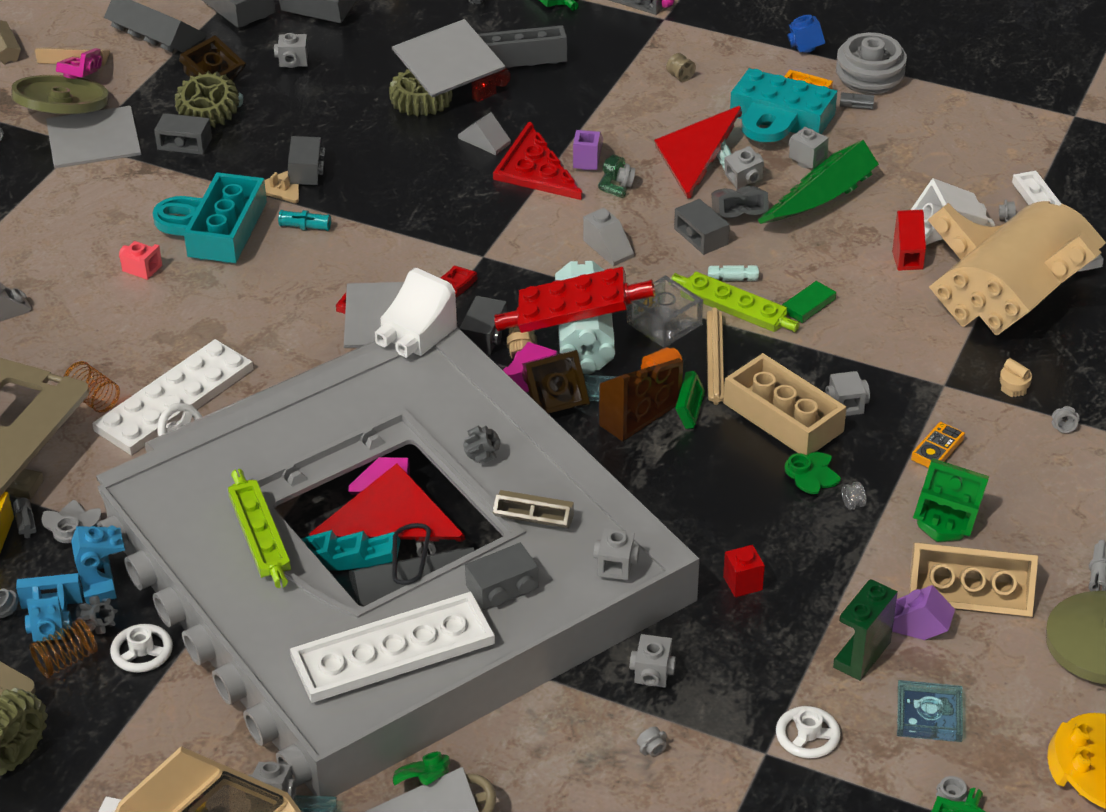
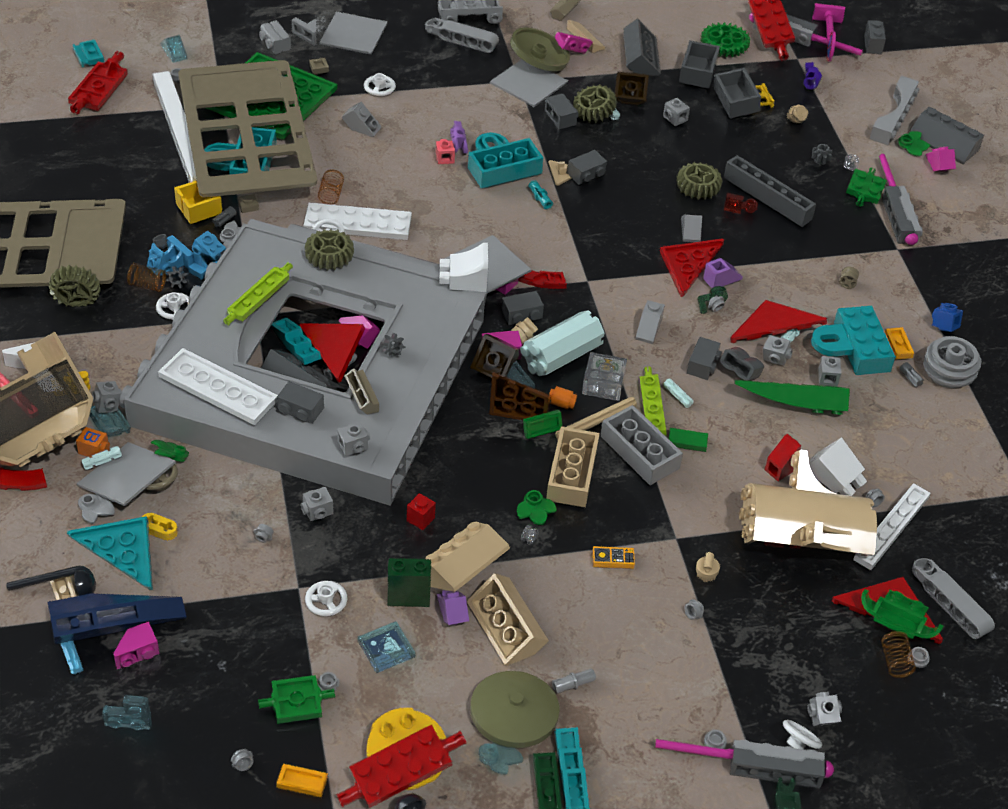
camera: 50 degrees right, 5 degrees up
(126, 234) = (459, 137): none -> medium lavender hinge
(247, 423) = (329, 249): none -> olive gear
(423, 558) = (301, 368): black piece -> none
(448, 57) = (729, 172): light grey piece -> none
(573, 300) = (553, 327): red plate -> none
(798, 334) = (641, 444): none -> light grey brick
(849, 391) = (616, 493): light grey brick -> none
(859, 552) = (465, 556): none -> tan slope
(949, 501) = (558, 579): green piece -> none

